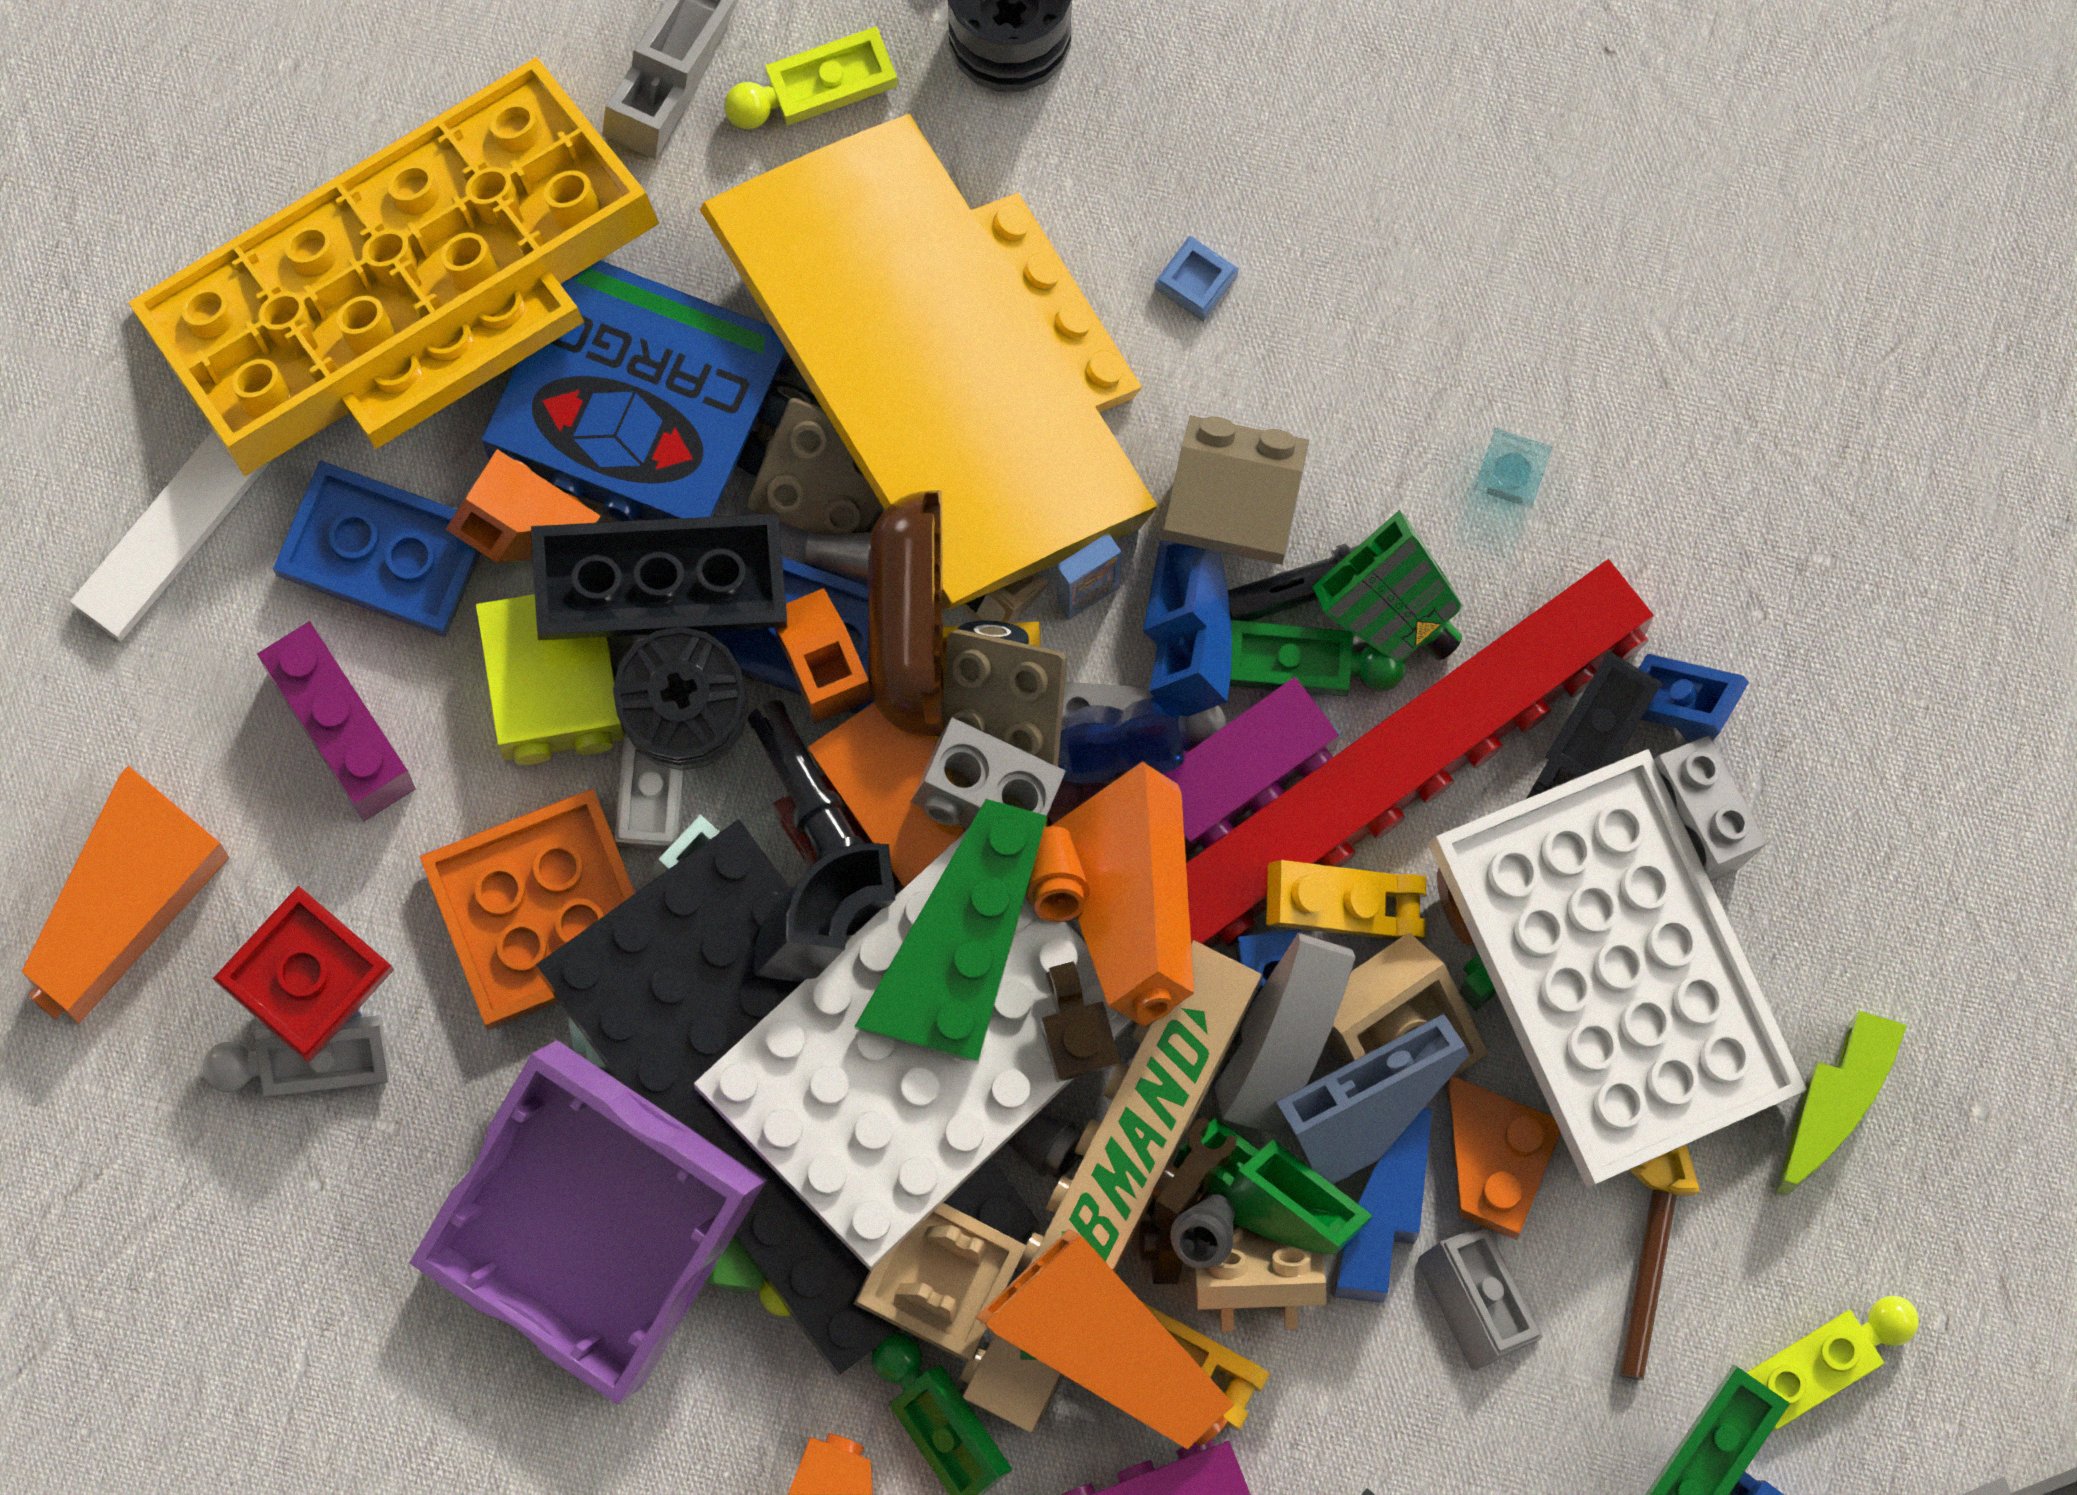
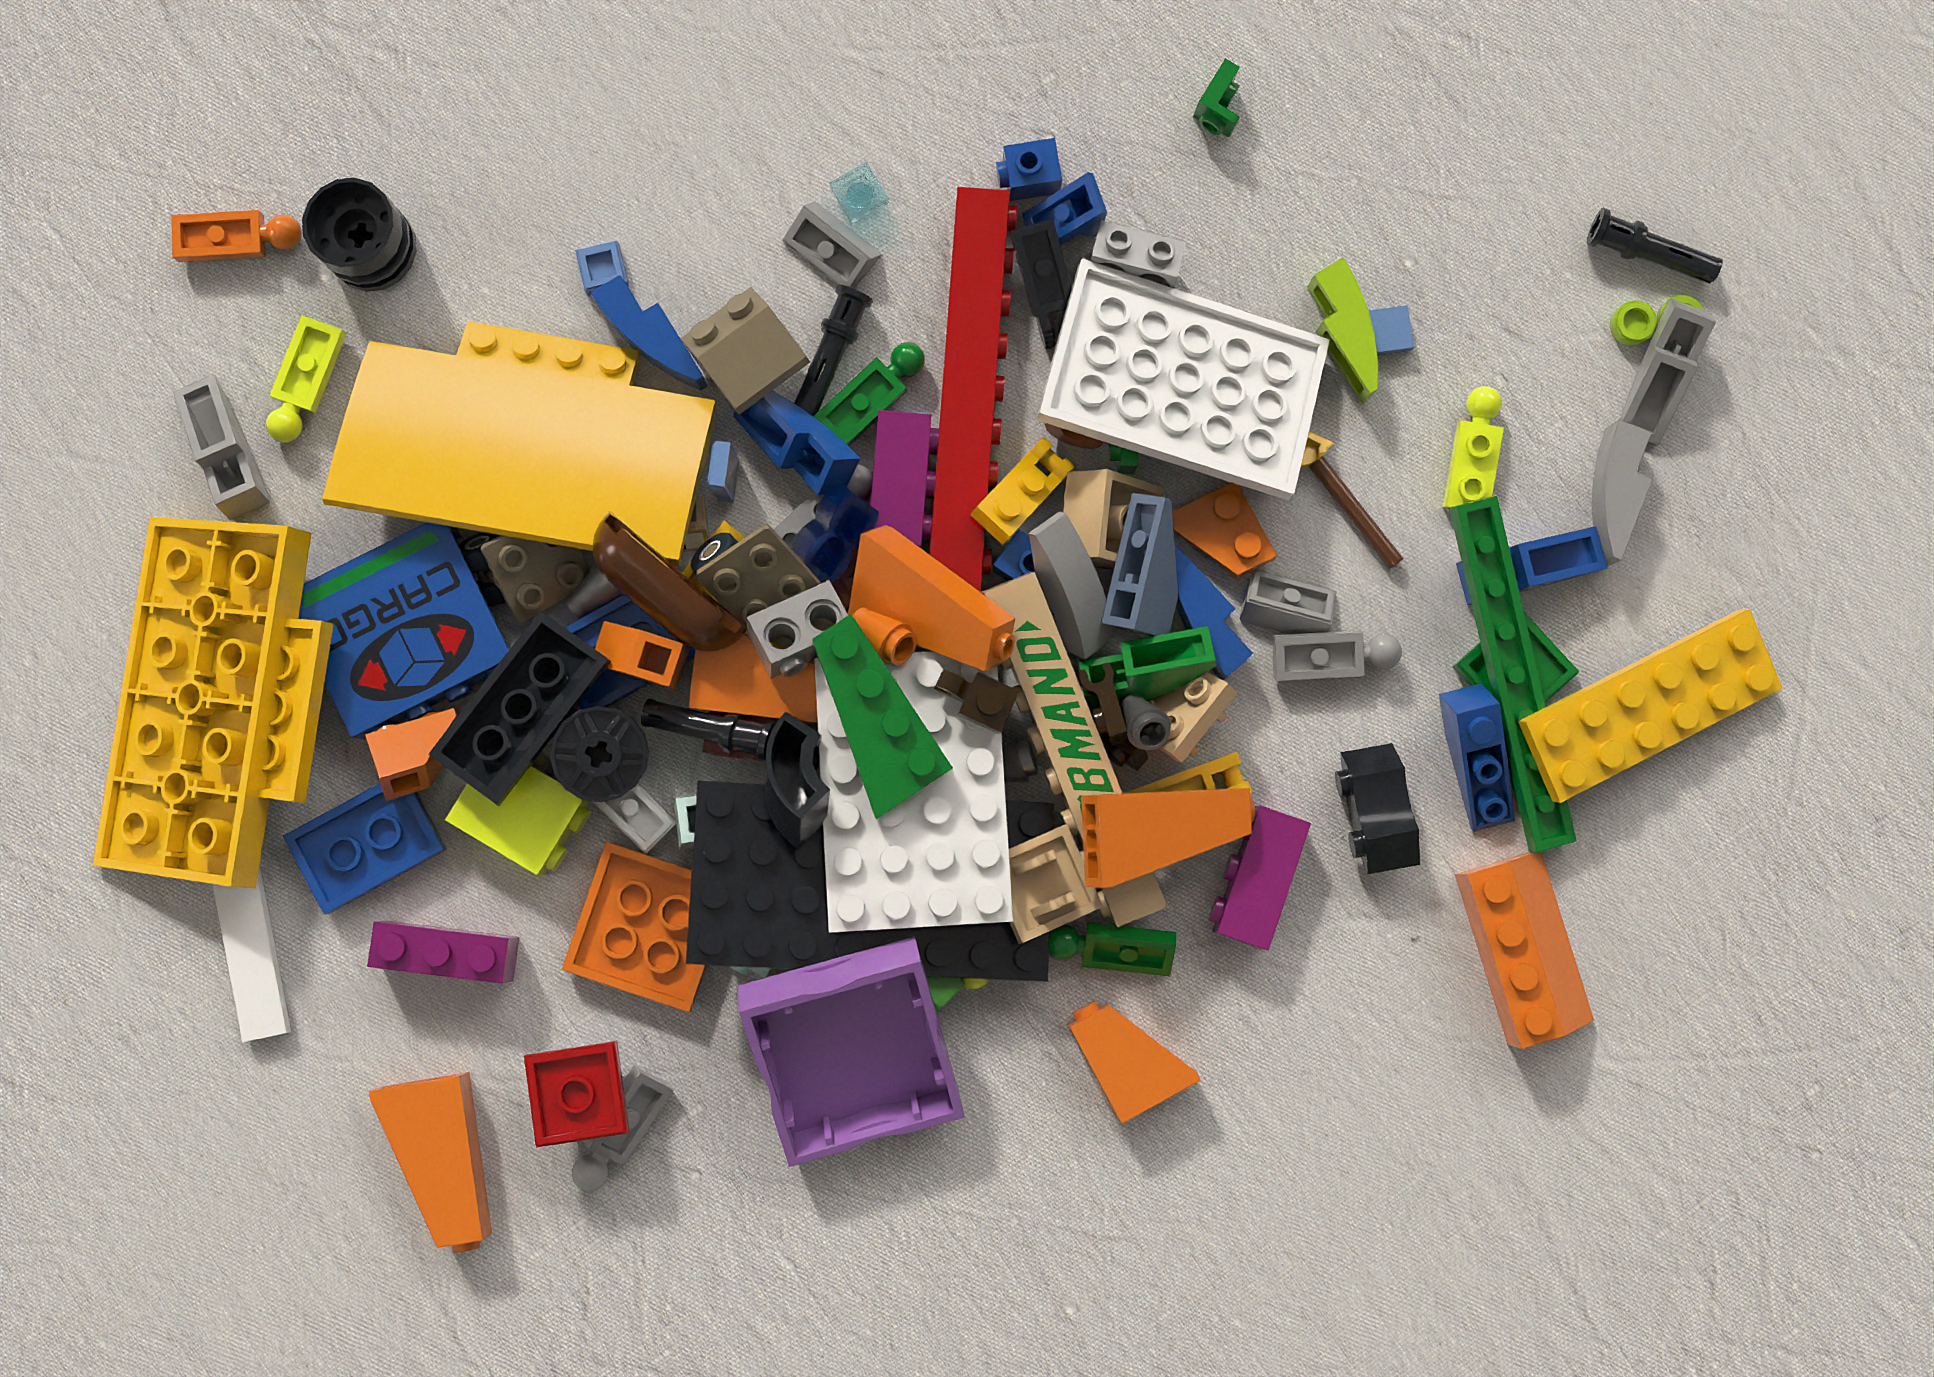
camera: 55 degrees left, 10 degrees up
(1169, 378) = (648, 332): none -> blue slope
(1393, 594) = (876, 318): green torso -> none
(1434, 484) = (831, 245): none -> light grey slope
(1465, 1386) = (1331, 654): none -> light grey plate
(1700, 620) = (1030, 169): none -> blue brick
(1879, 1150) = (1392, 330): none -> medium blue tile
(1969, 745) = (1213, 105): none -> green bracket

